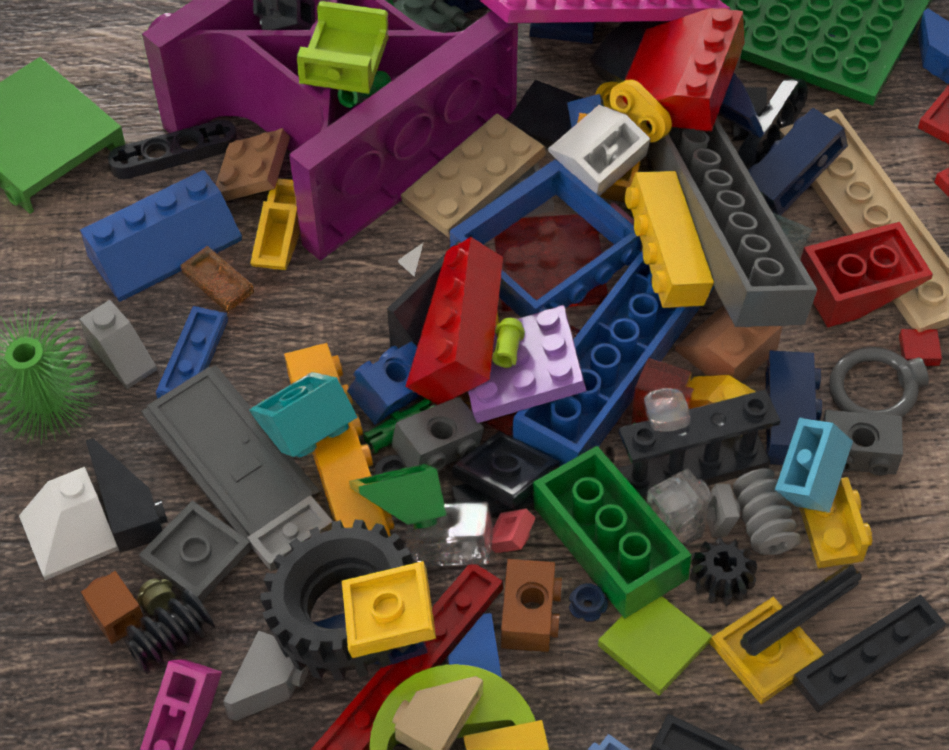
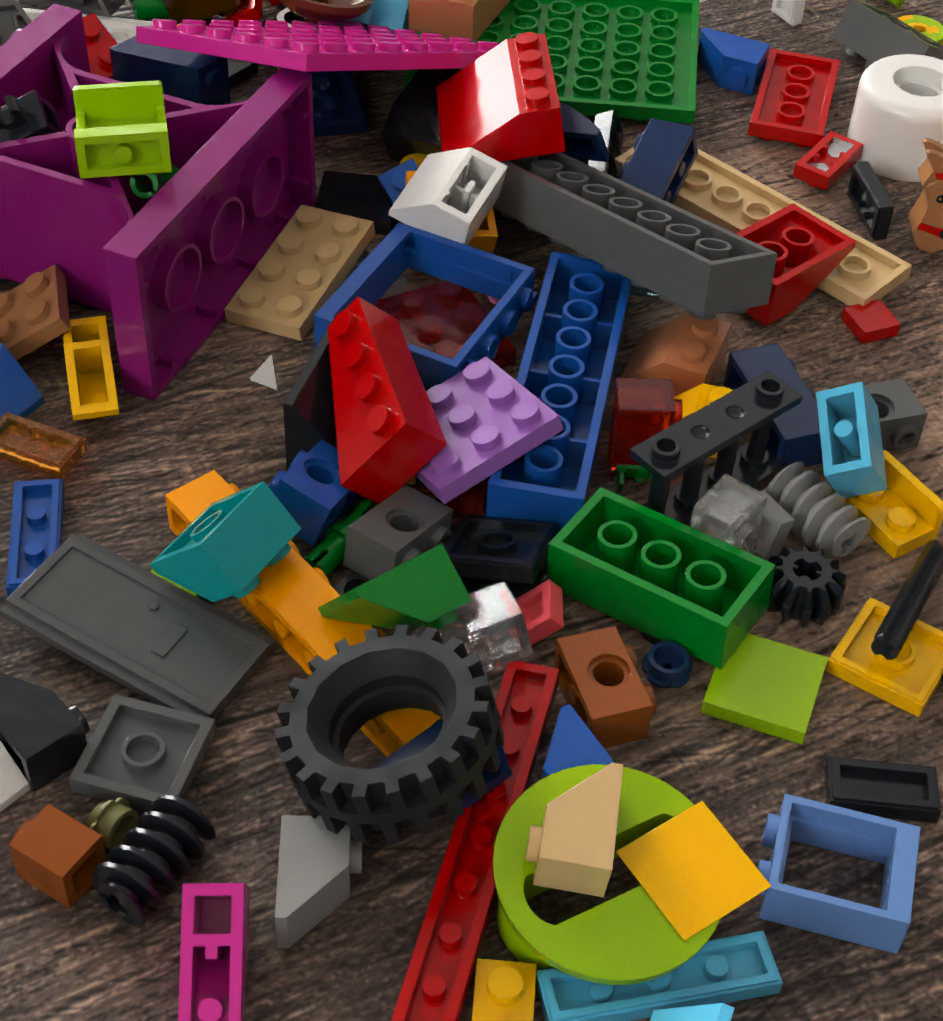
camera: 25 degrees left, 10 degrees down
(292, 524) = (252, 703): light grey plate -> none
(388, 609) = (474, 709): yellow tile -> none
(509, 335) = (445, 394): lime pin -> none
(641, 108) = (482, 137): yellow plate -> none
(667, 409) = (676, 414): clear tile -> none
(669, 239) = (574, 262): yellow brick -> none
(910, 373) = (877, 346): dark grey piece -> none

